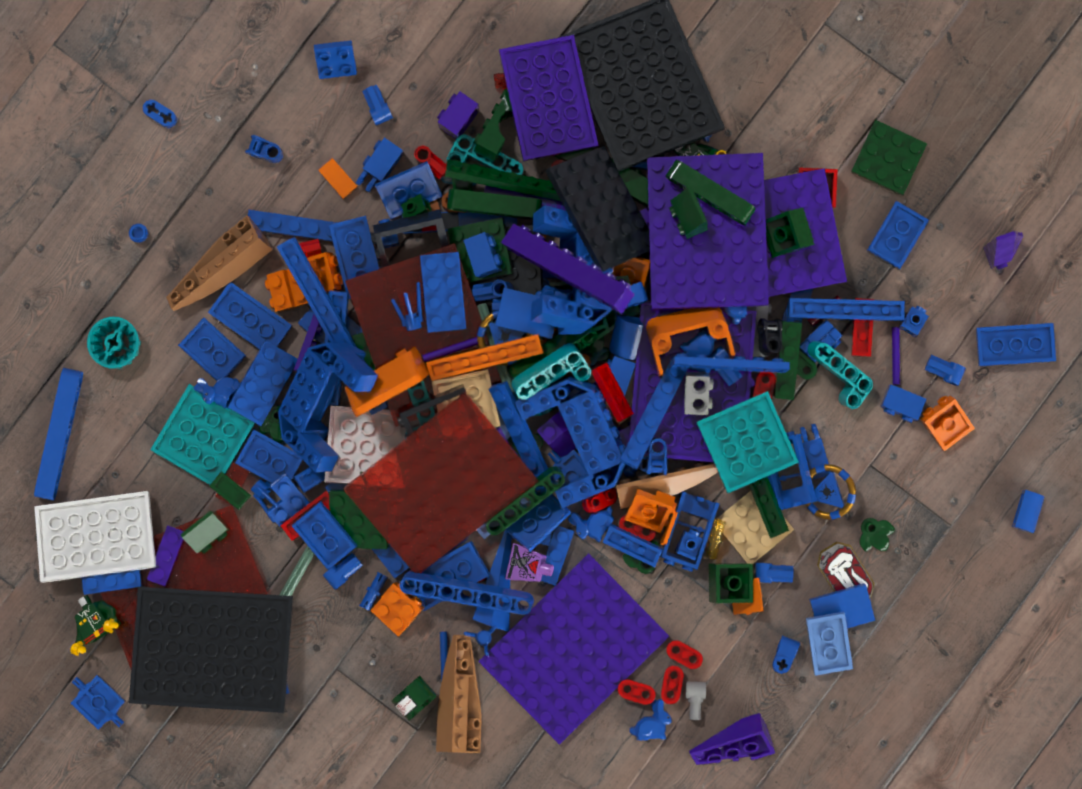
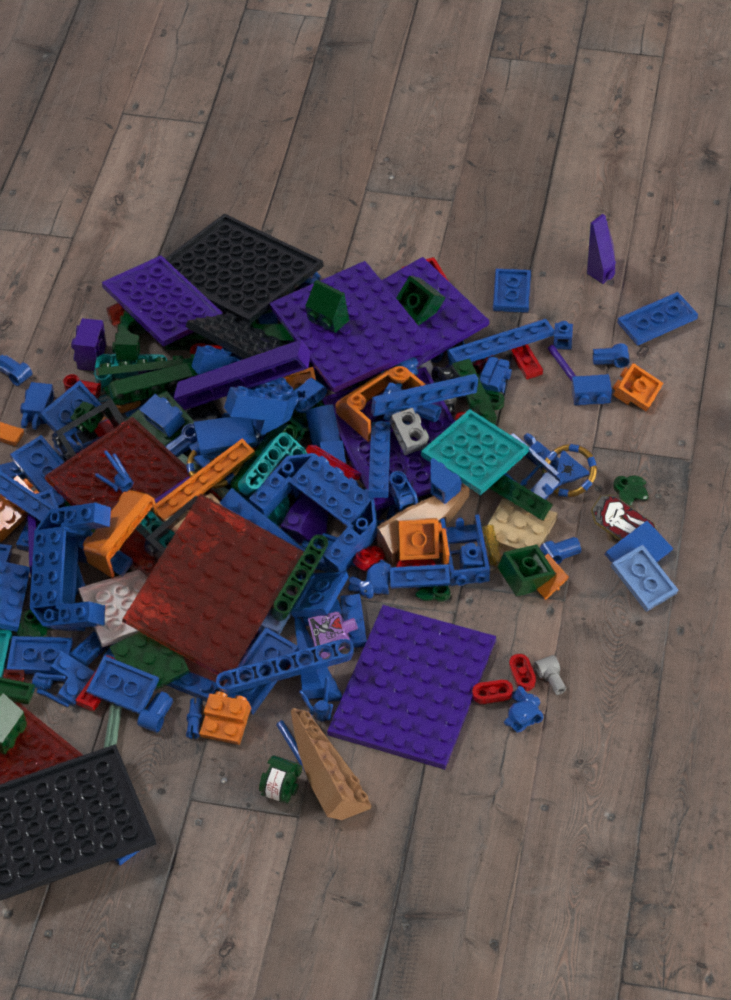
camera: 30 degrees left, 35 degrees down
(443, 292) = (140, 453): blue plate -> none
(684, 654) = (519, 644): red plate -> none
(698, 464) = (443, 482): none -> blue slope
(710, 192) = (356, 292): dark green beam -> none
(742, 739) = (613, 689): dark purple wedge -> none
(785, 651) = (611, 606): blue piece -> none
(838, 369) = (526, 382): teal beam -> none
(889, 157) = (471, 246): dark green plate -> none

